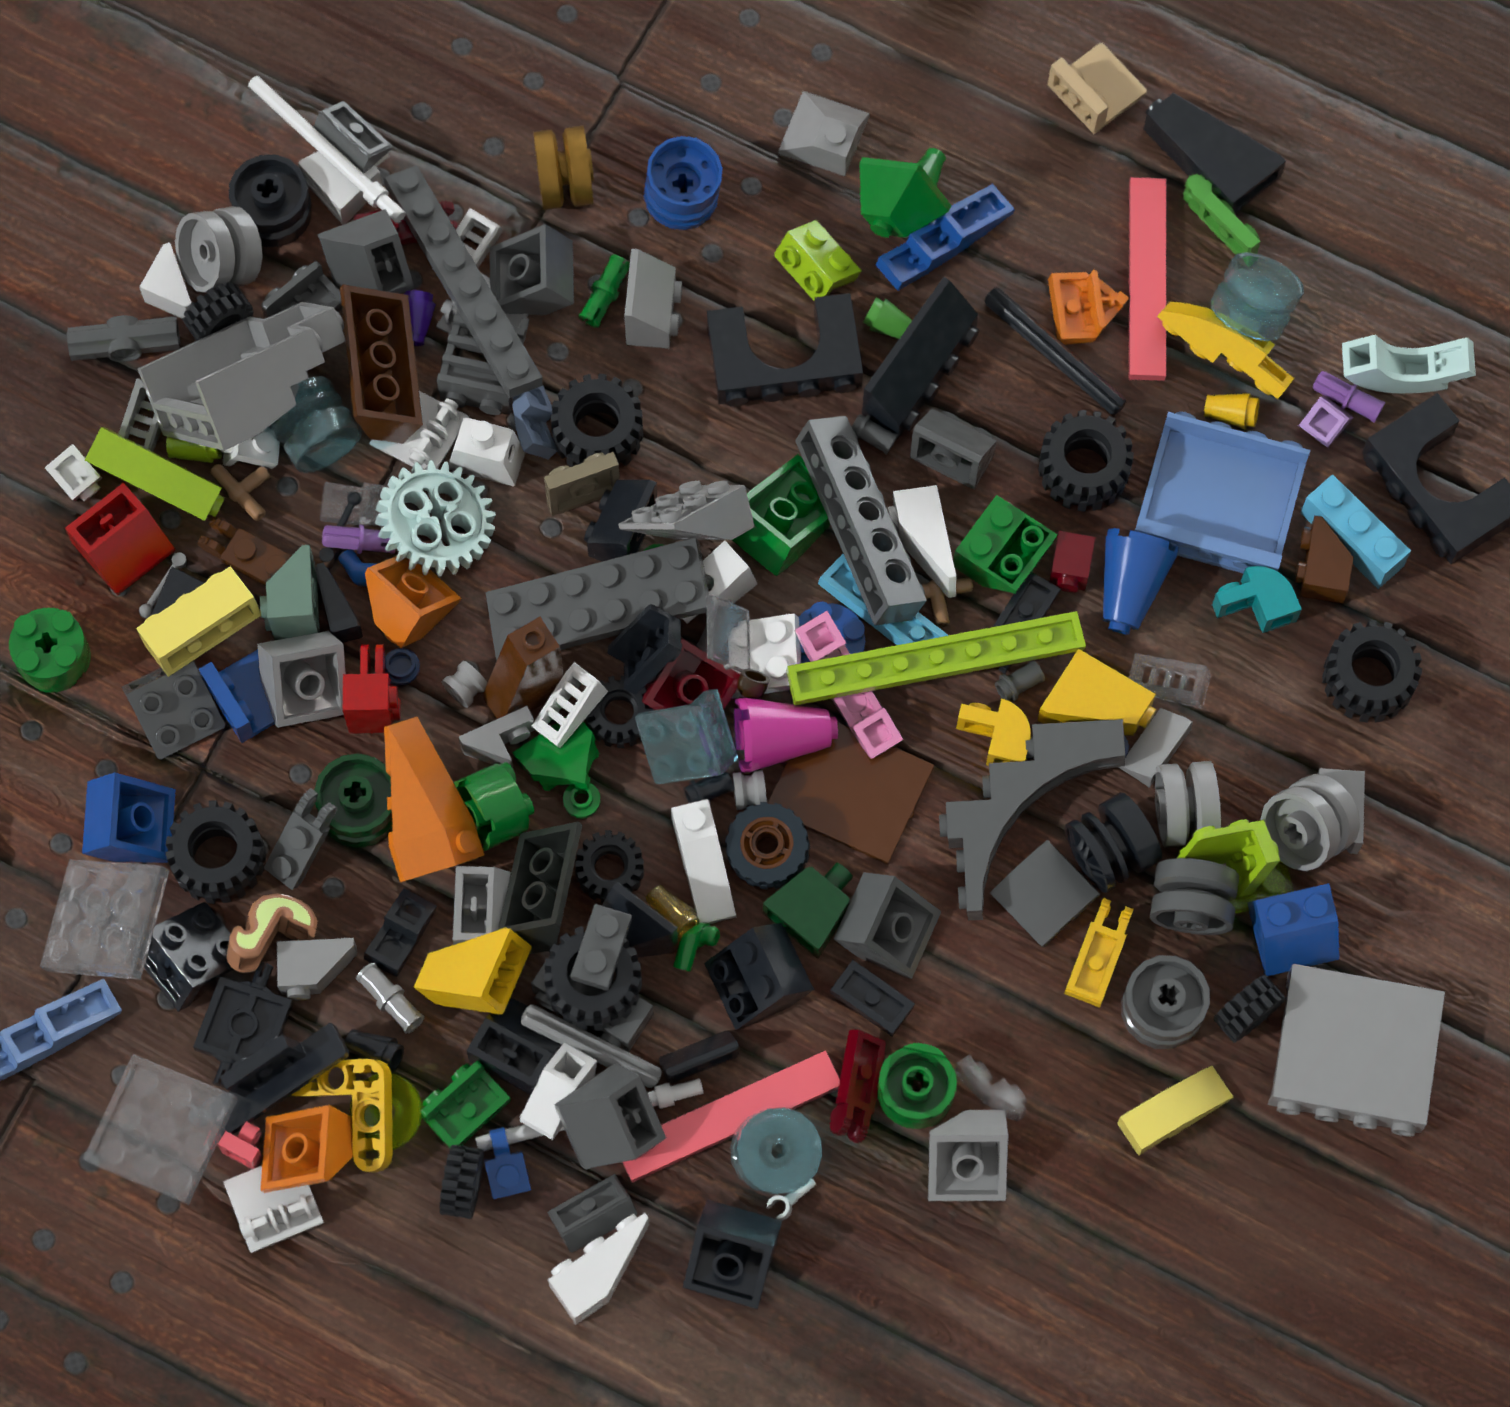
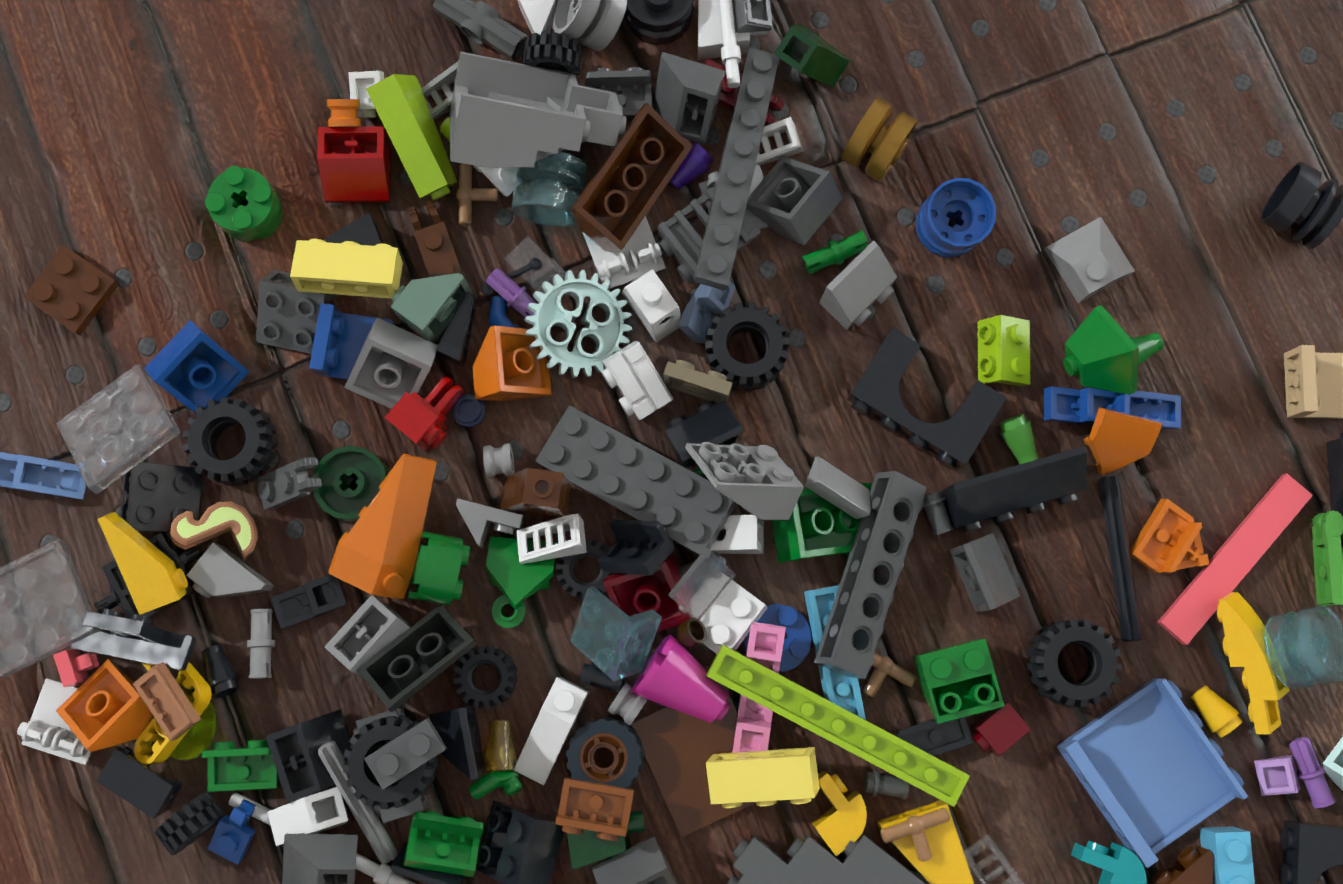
camera: 40 degrees right, 10 degrees up
(77, 498) = (343, 112): none -> orange wheel
(178, 561) = (387, 211): light grey hinge -> none
(243, 1004) = (145, 569): none -> yellow slope
(356, 1090) = (167, 701): none -> nougat plate
(386, 1186) = (138, 783): none -> black hinge
(445, 143) = (812, 55): none -> dark green slope
(475, 972) = (320, 684): yellow slope -> none
(527, 523) = (637, 381): none -> white brick
(692, 1020) = (443, 843): none -> green bracket
(775, 474) = (839, 489): none -> light grey slope
(794, 879) = (594, 808): none -> dark orange bracket
(911, 748) = (763, 777): none -> light yellow brick
(924, 533) = (909, 619): white slope -> none
(972, 254) = (1120, 439): none -> orange slope
(1067, 684) = (915, 827): none -> medium nougat piece
(1133, 577) = (1033, 781): blue cone -> none

